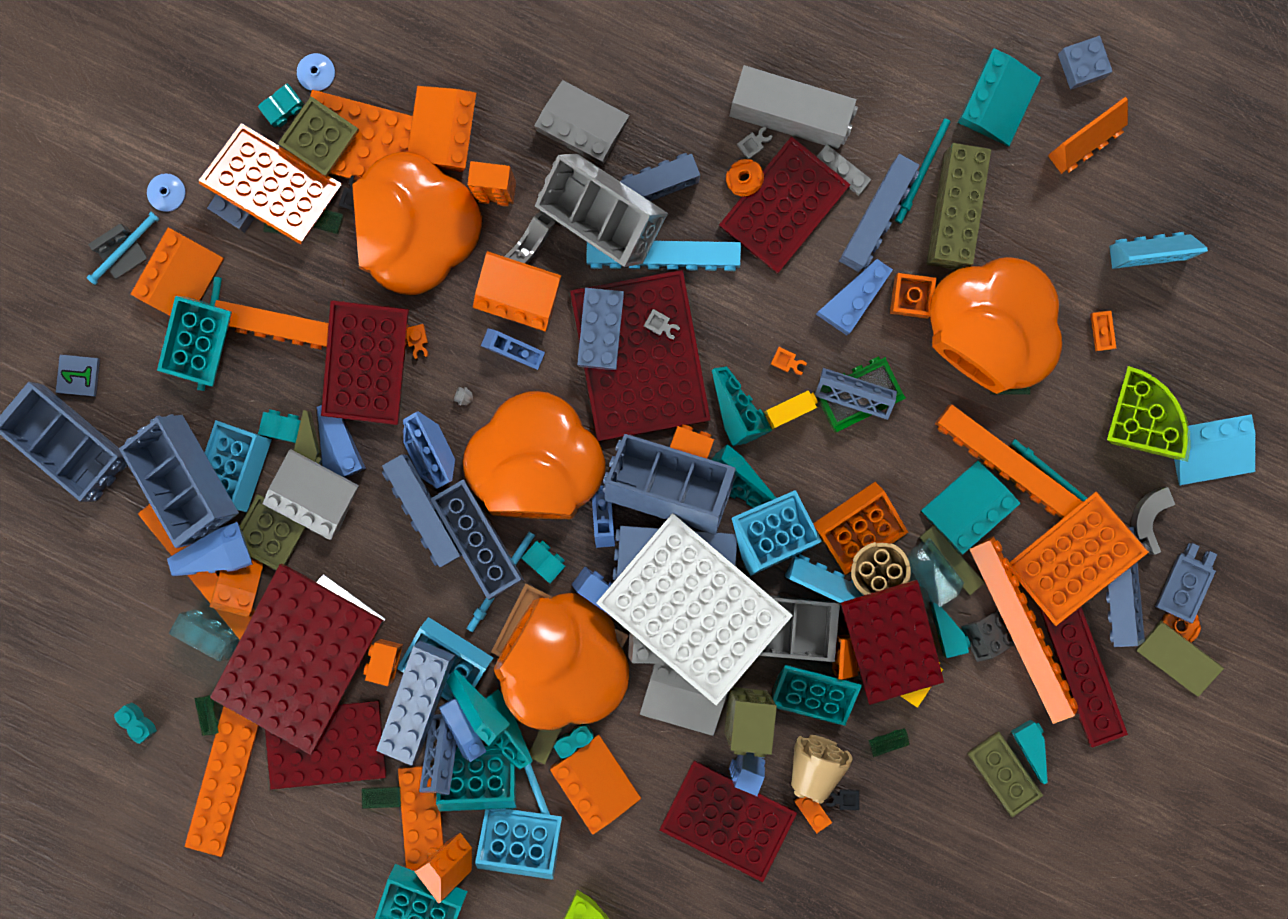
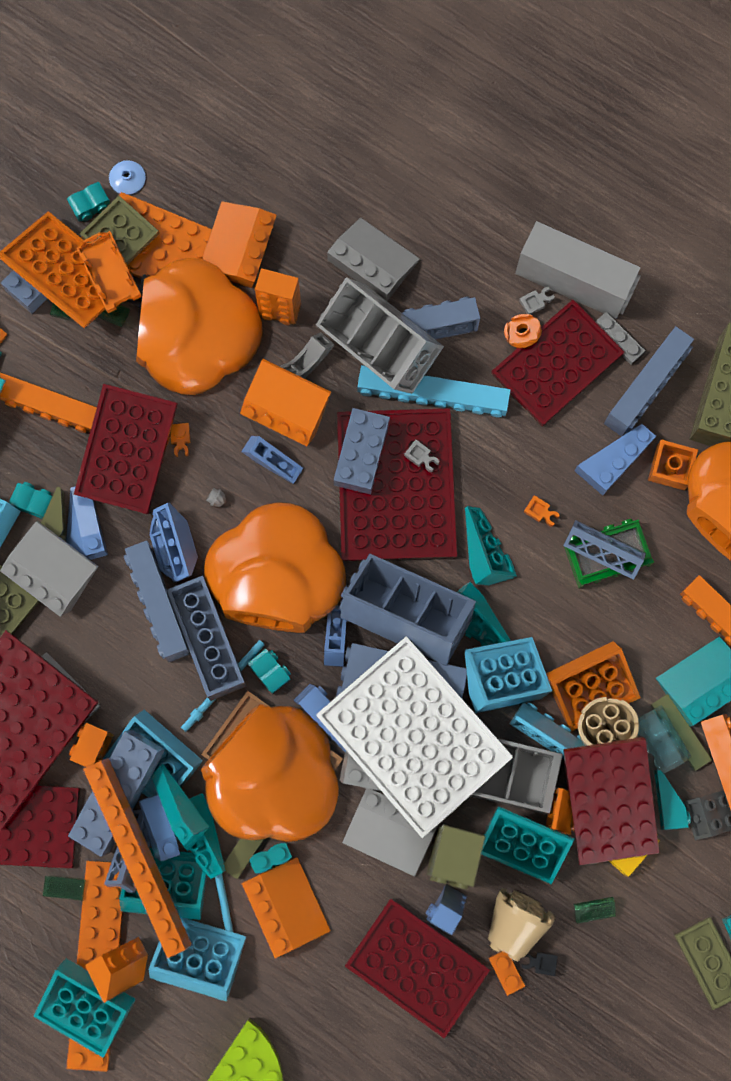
camera: 10 degrees right, 10 degrees down
(314, 180) = (108, 270): none -> orange piece
(446, 763) = (137, 857): none -> orange brick
(692, 442) = (435, 571): orange brick -> none
(791, 409) = (538, 556): yellow brick -> none
(907, 204) = (677, 378): teal bar -> none

